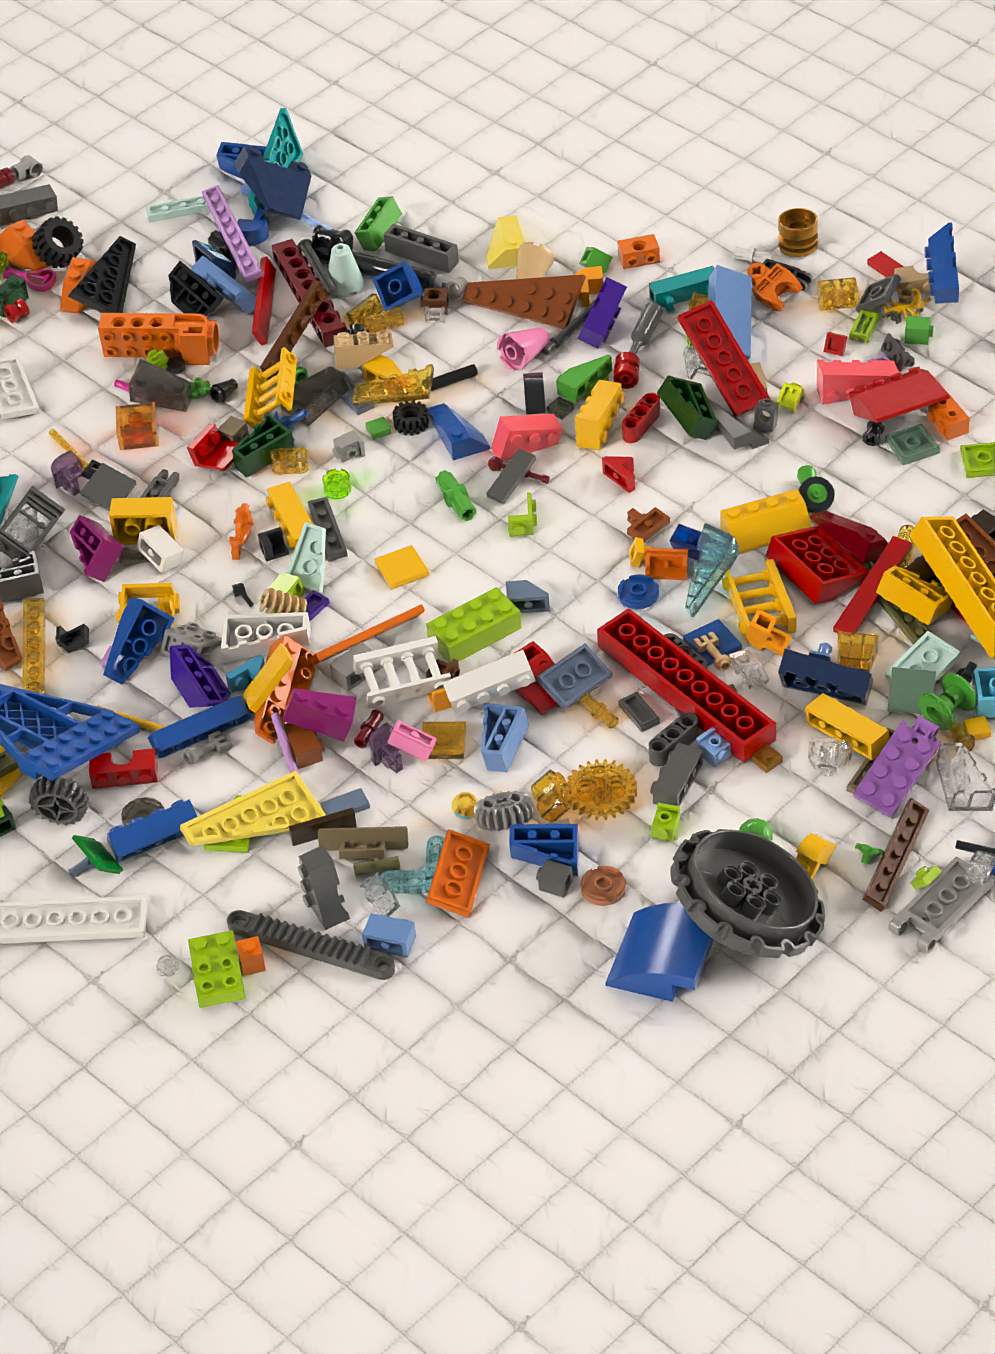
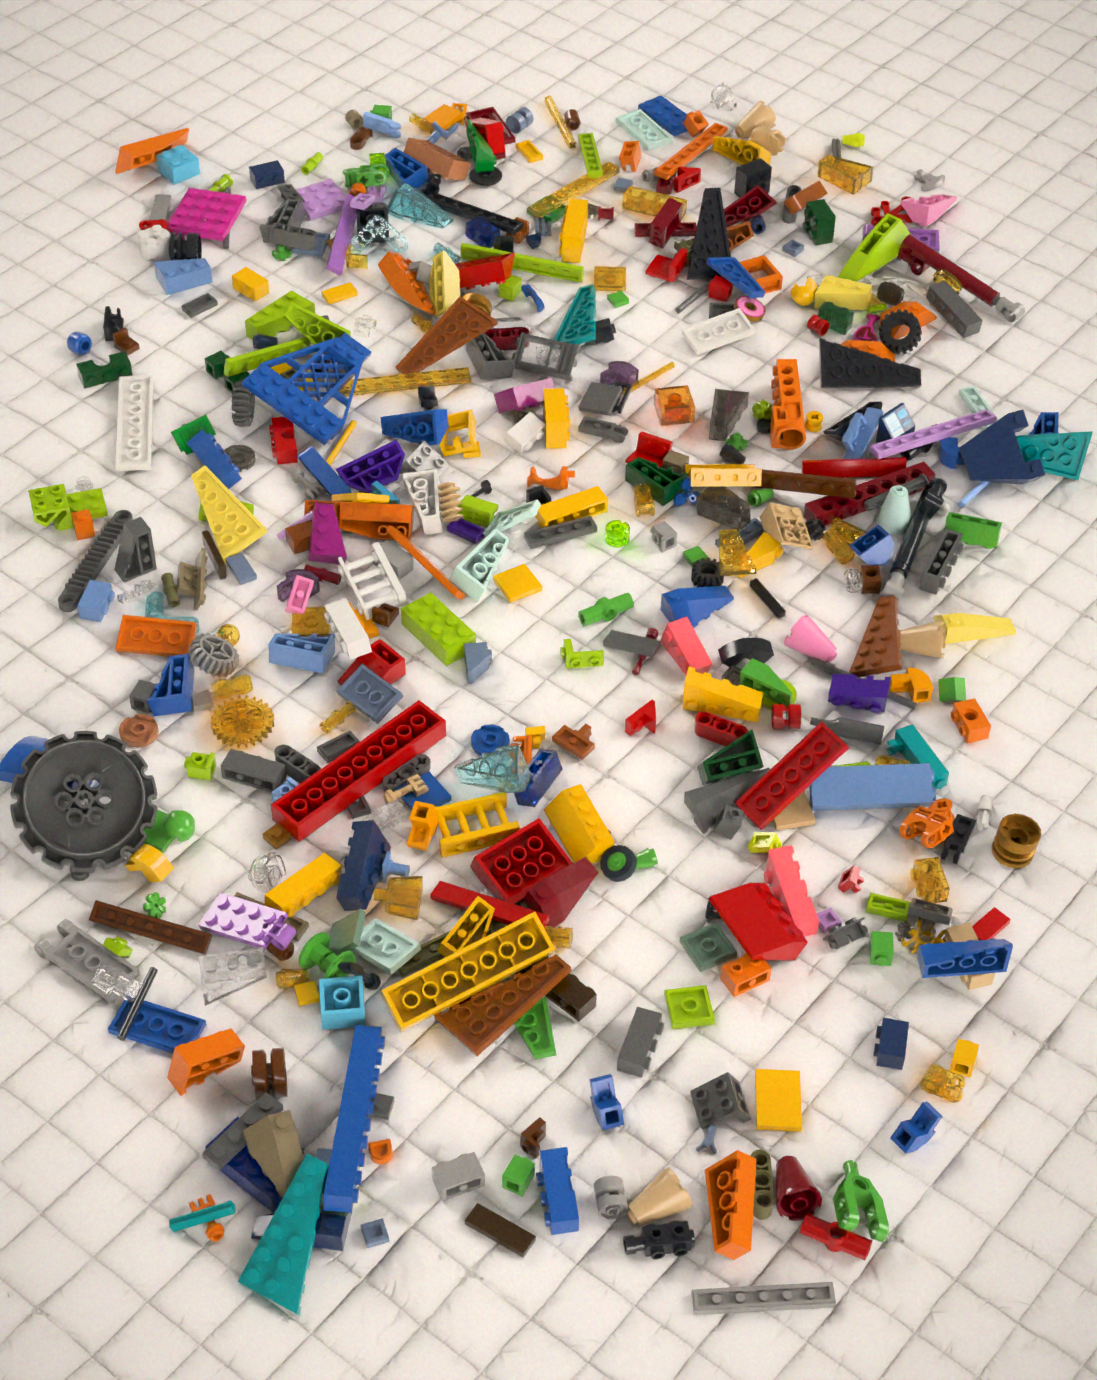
camera: 80 degrees right, 0 degrees up
(378, 586) = (477, 568): none -> light aqua wedge

